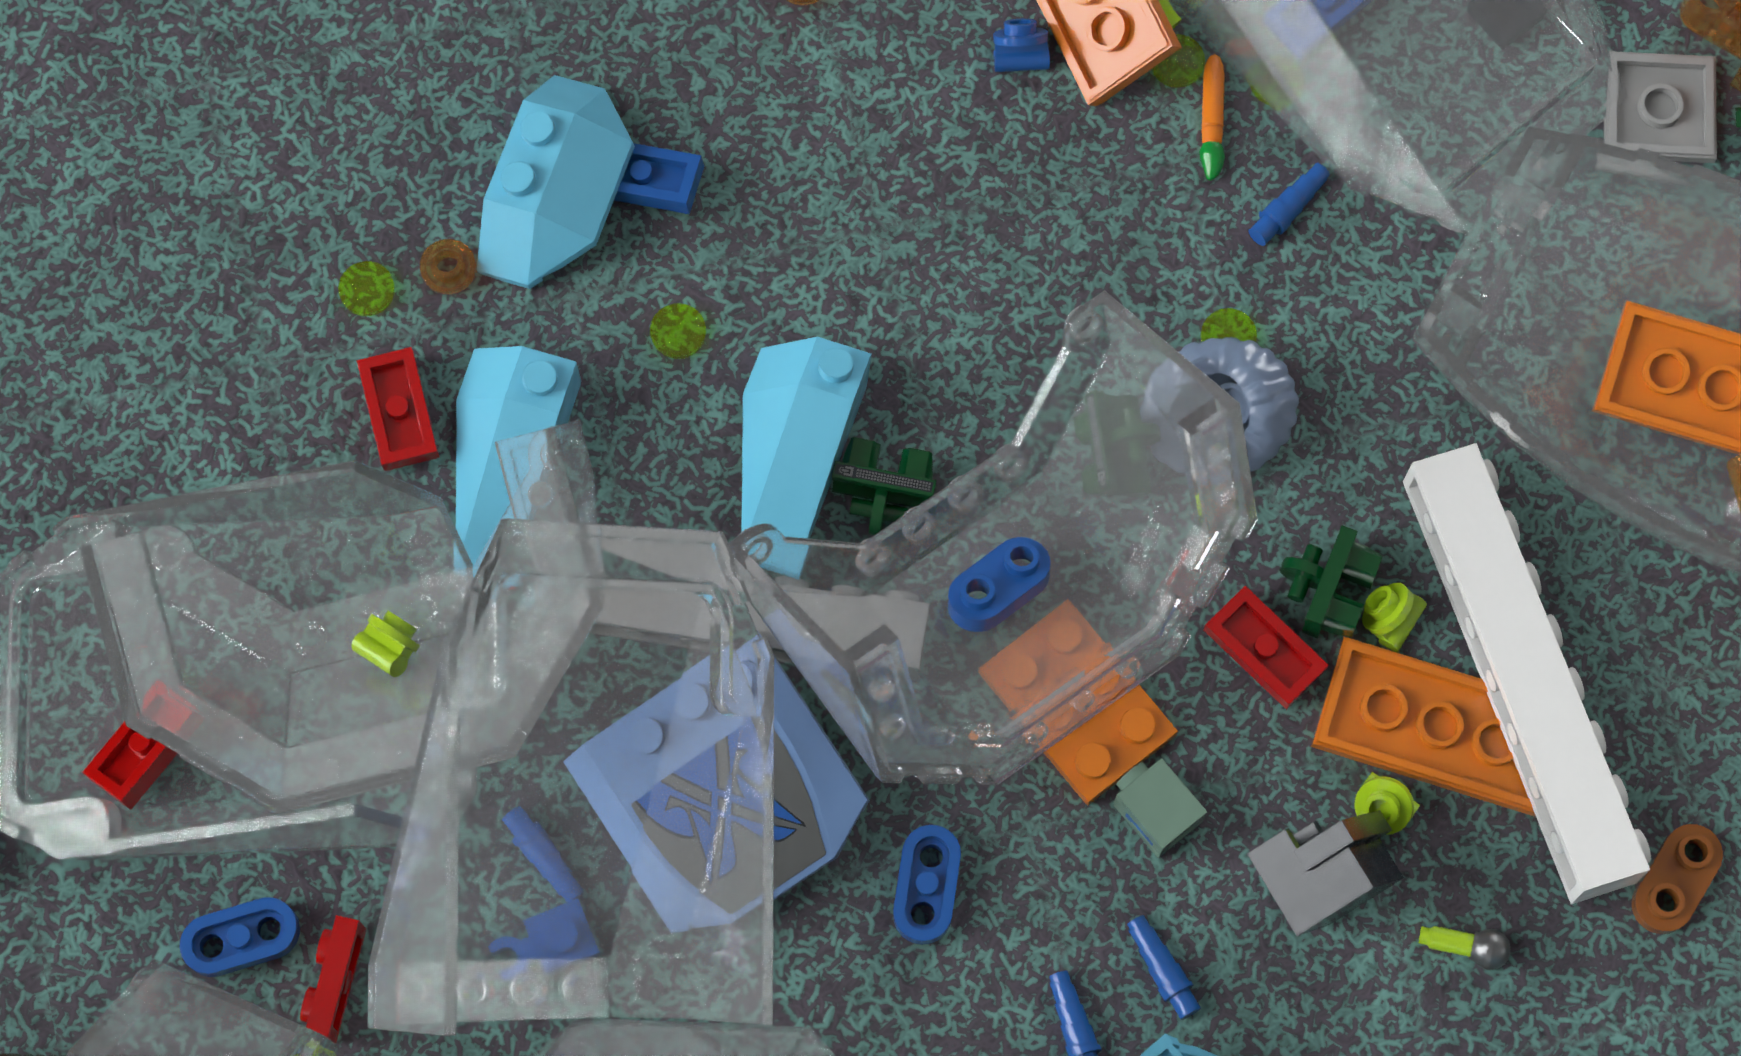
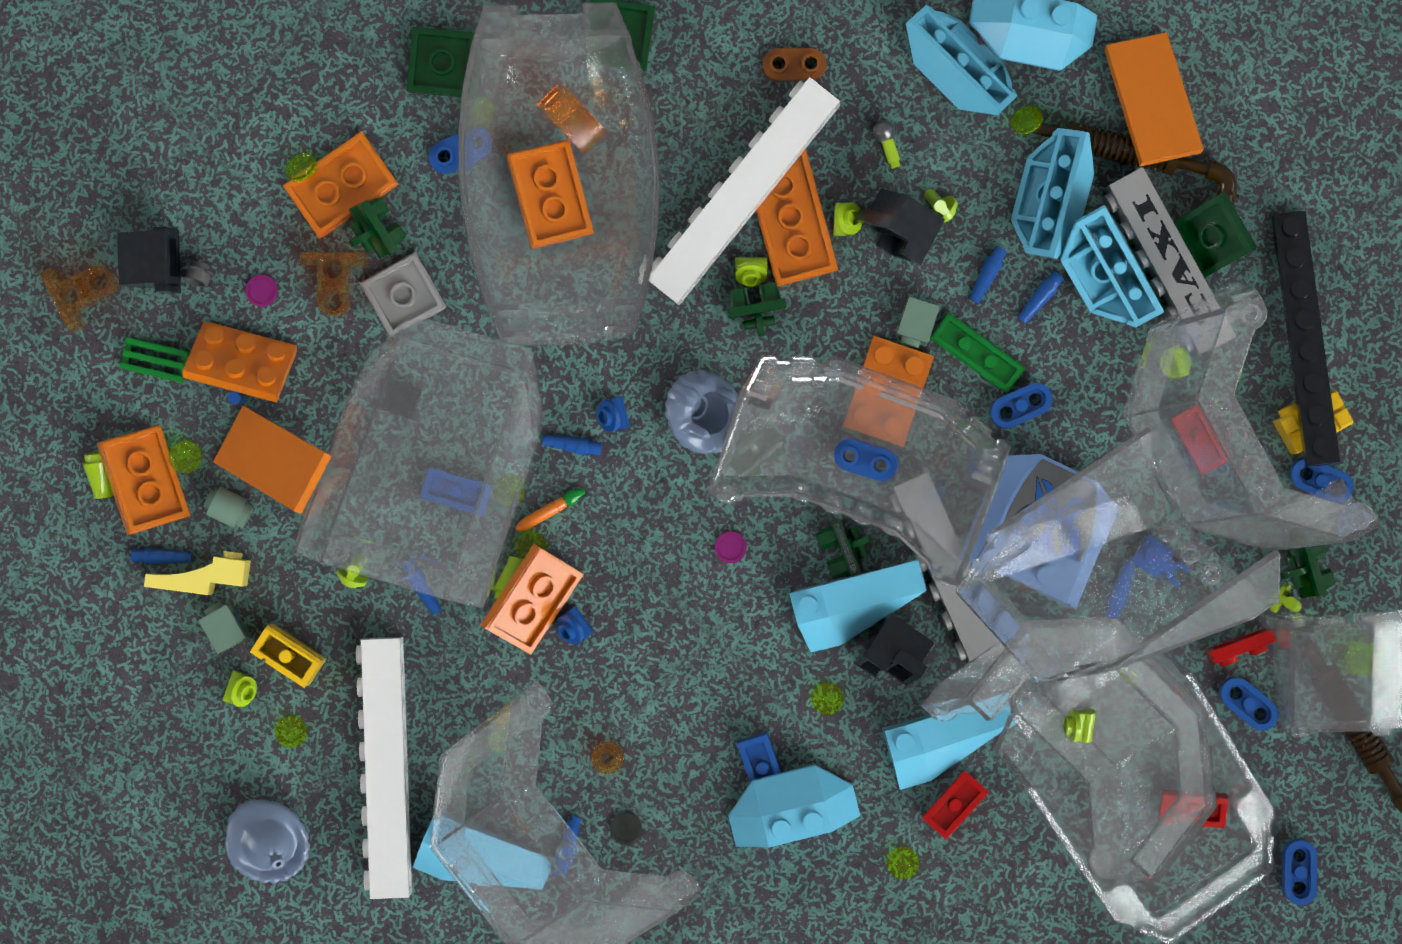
camera: 125 degrees left, 15 degrees up
(451, 281) = (861, 822): clear orange plate -> none
(687, 455) = (896, 650): none -> black plate
(991, 332) = (730, 547): none -> magenta piece
(1051, 873) = (977, 353): none -> green tile
(1228, 323) = (657, 433): clear neon green piece -> none
(1265, 647) = (806, 319): red plate -> none
(1297, 285) = (612, 415): none -> blue plate
(1314, 956) = (944, 206): none -> lime plate

